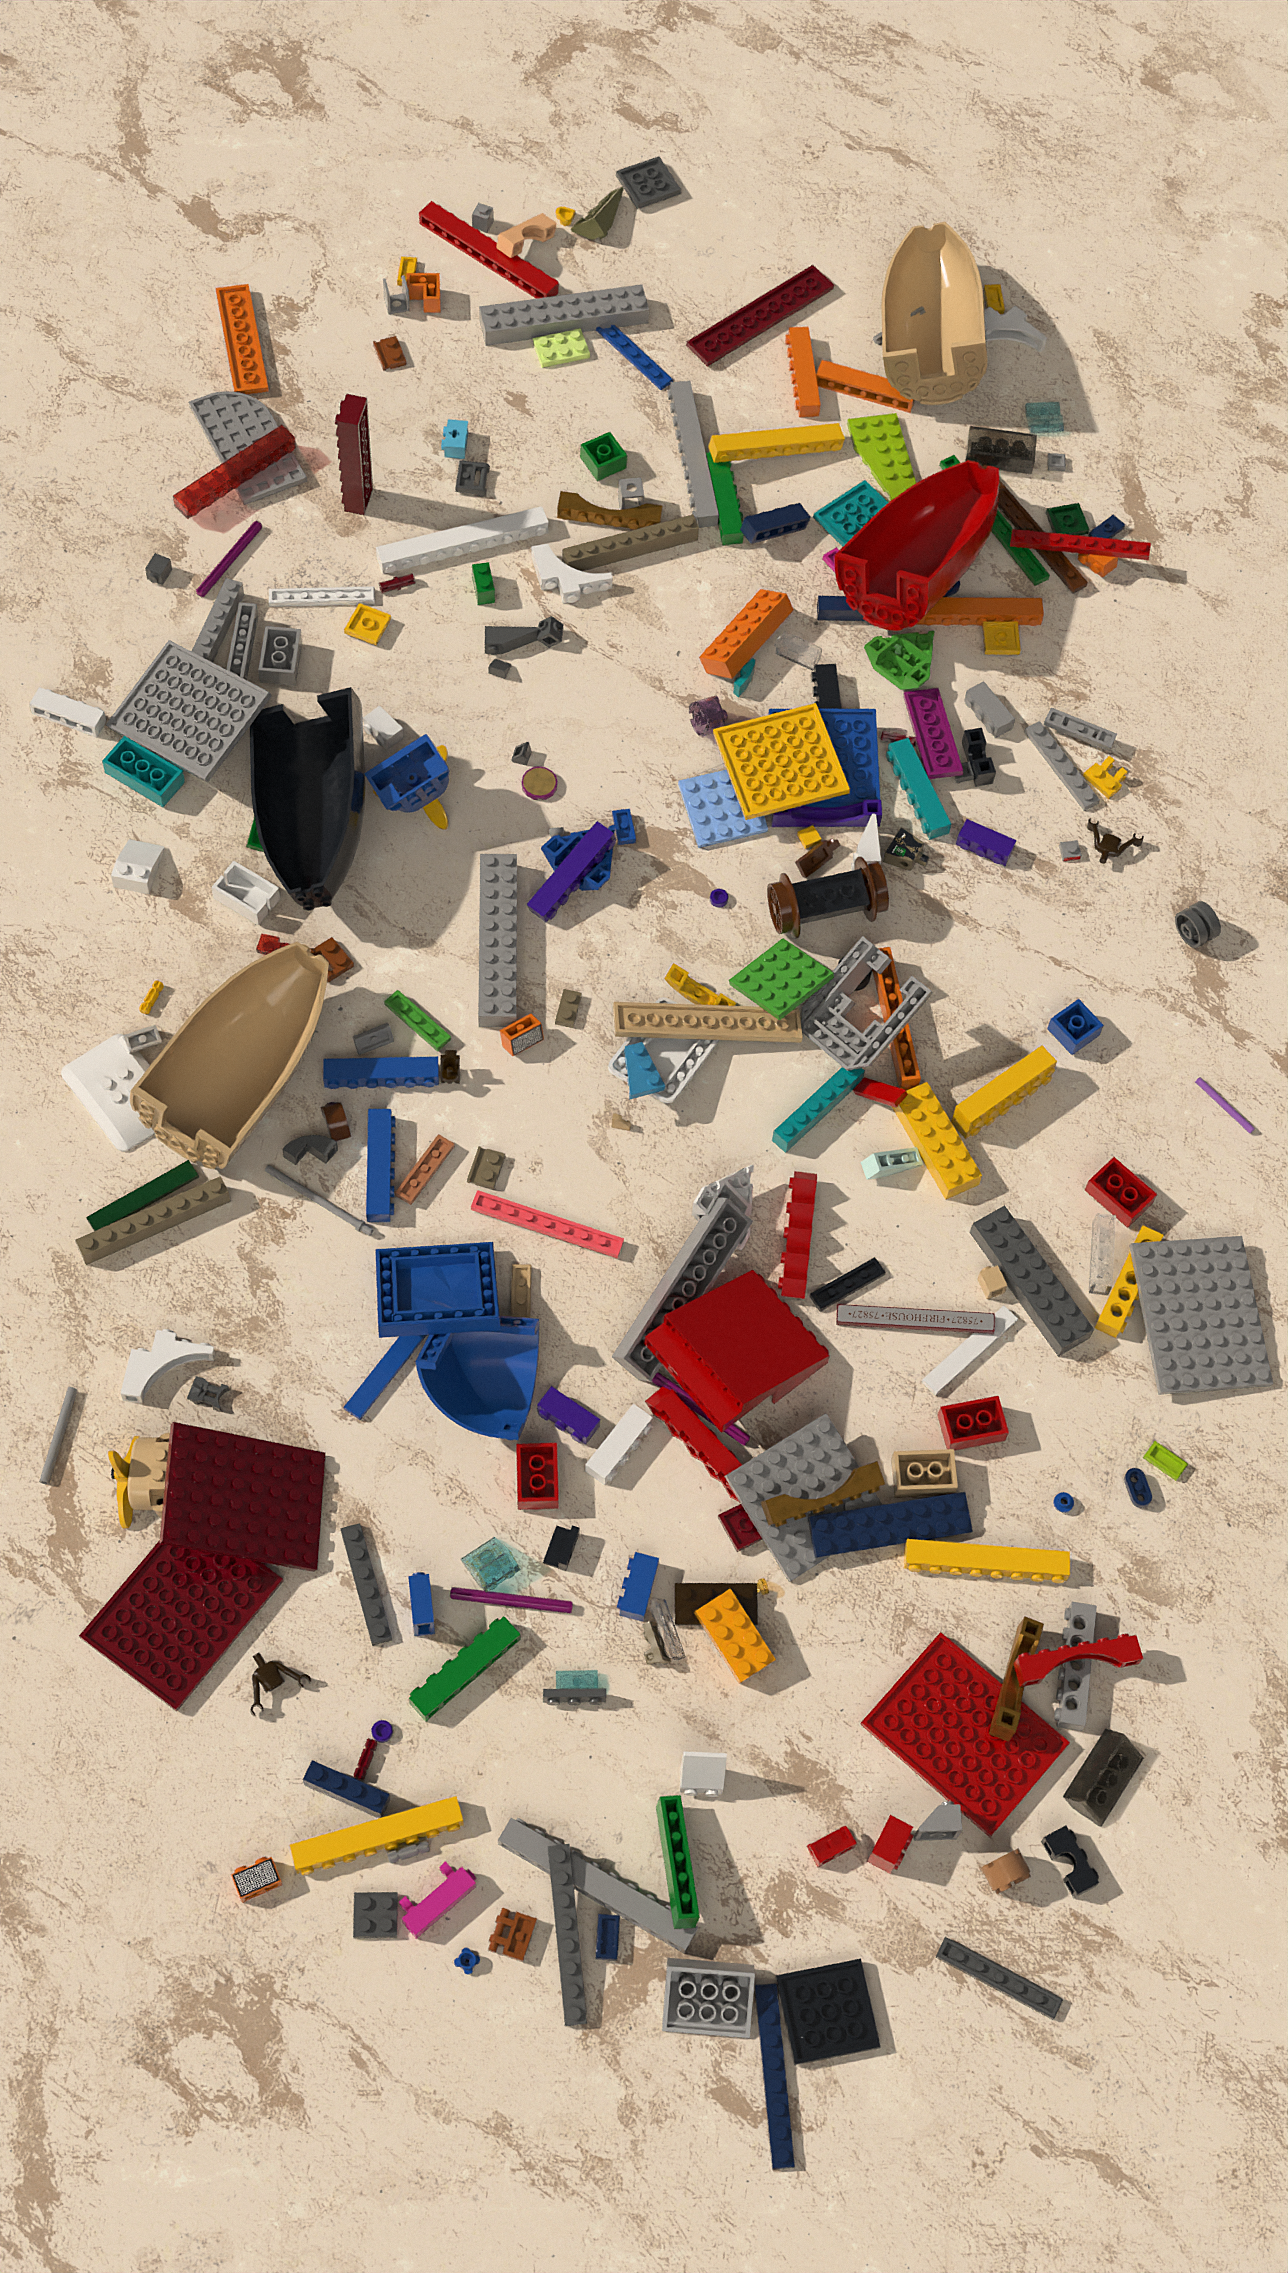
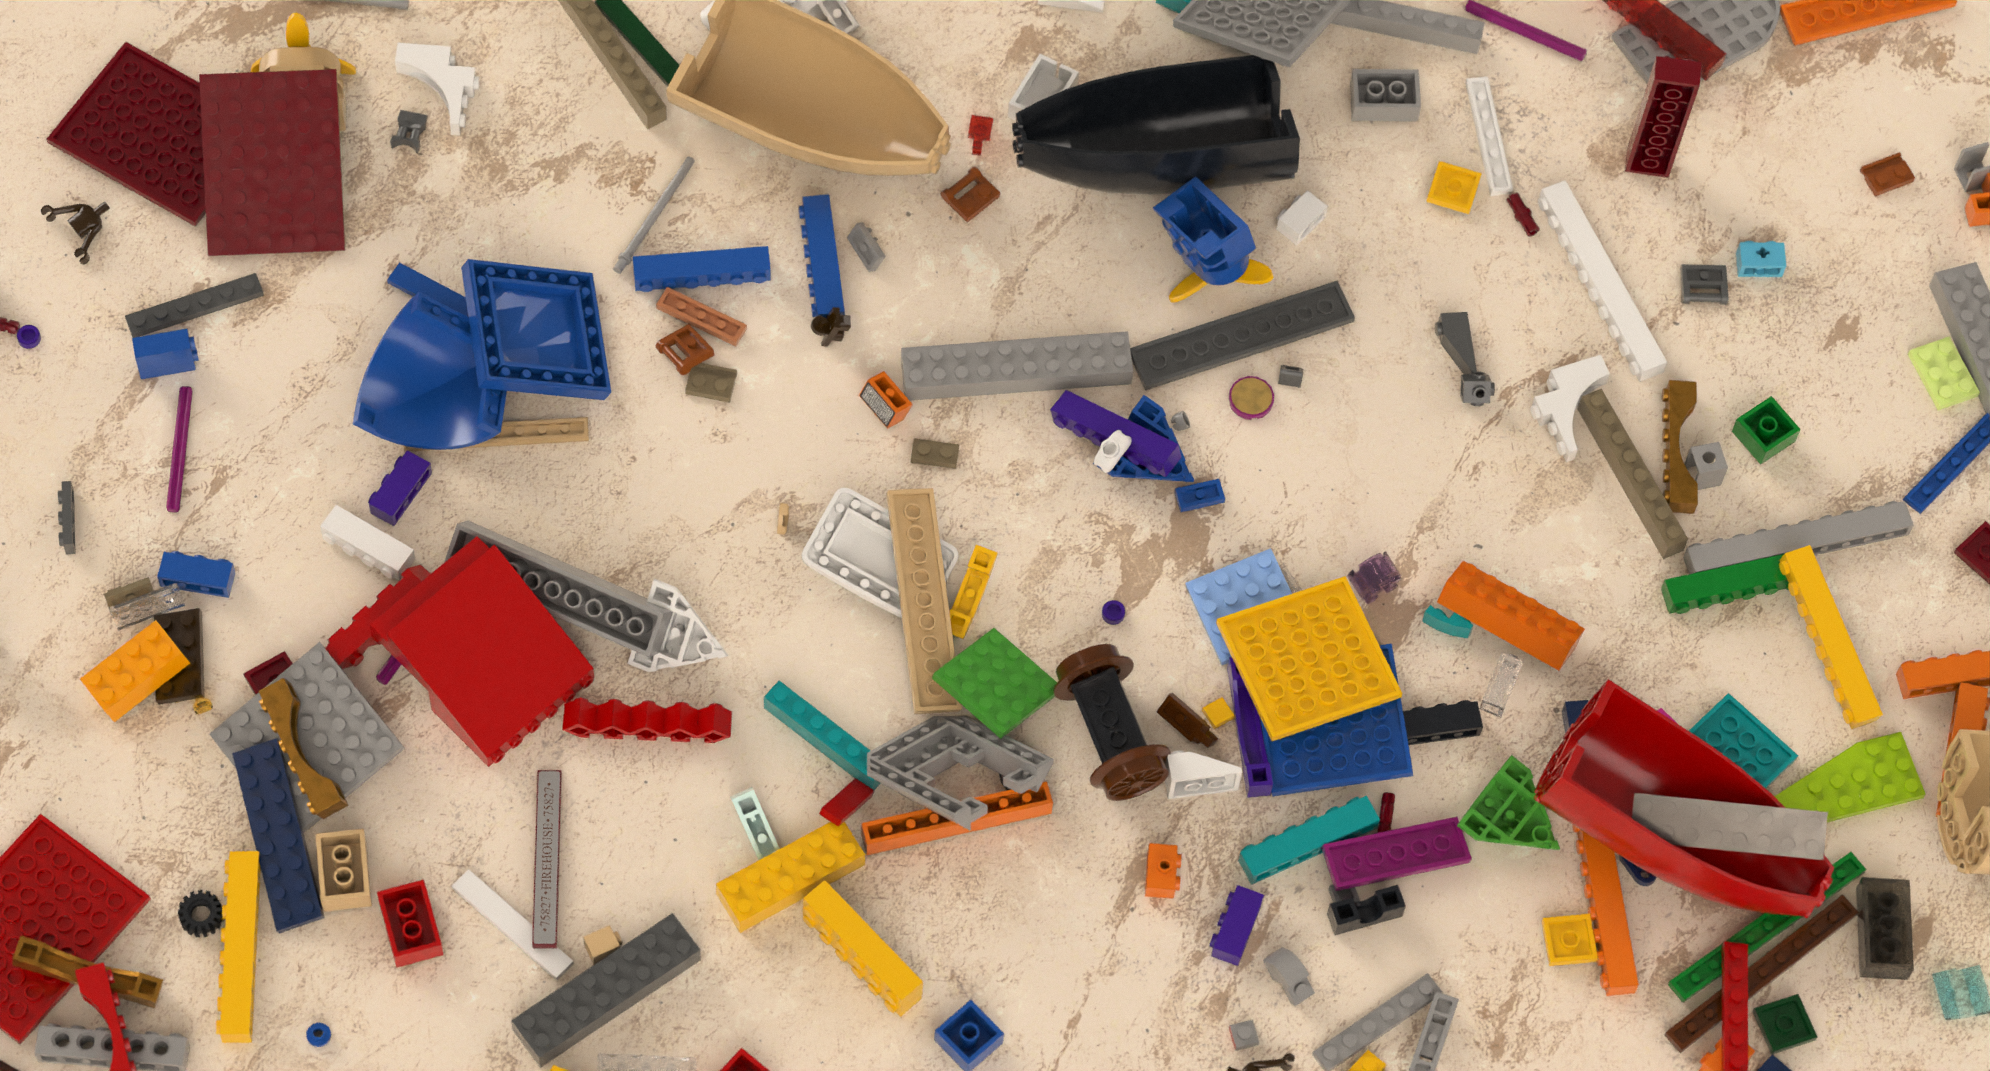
camera: 85 degrees right, 0 degrees up
(151, 997) = (898, 20): yellow axle -> none
(243, 639) = (1381, 52): light grey brick -> none
(317, 1145) = (717, 208): dark grey brick -> none
(336, 1121) = (751, 215): reddish brown brick -> none
(417, 1020) = (897, 292): bright green plate -> none
(452, 1178) = (691, 345): none -> dark orange plate
(464, 1669) = (97, 407): green brick -> none
(483, 583) = (1537, 308): green brick -> none
(484, 780) = (1241, 335): none -> dark grey plate
(491, 1564) = (217, 422): clear light blue slope -> none
(499, 668) = (1416, 339): dark grey slope -> none
(537, 1476) = (321, 458): red brick -> none
(547, 1224) = (641, 450): coral plate -> none
(561, 1547) = (242, 496): black panel -> none
(577, 1679) = (87, 522): clear light blue plate -> none
(596, 868) = (1112, 450): none -> white piece
(641, 1072) = (837, 522): dark azure wing -> none
(775, 523) = (1696, 641): dark blue brick -> none
(847, 1284) = (590, 783): black tile -> none
(905, 851) = (1210, 826): torso -> none
(934, 514) = (1733, 825): none -> plate
(940, 887) = (1161, 871): none -> orange brick
(961, 1581) = (200, 927): none -> black tyre
(989, 709) = (1447, 924): light grey brick -> none
(1025, 812) = (1291, 973): none -> light grey brick
(1056, 462) = (1888, 1010): light grey tile -> none

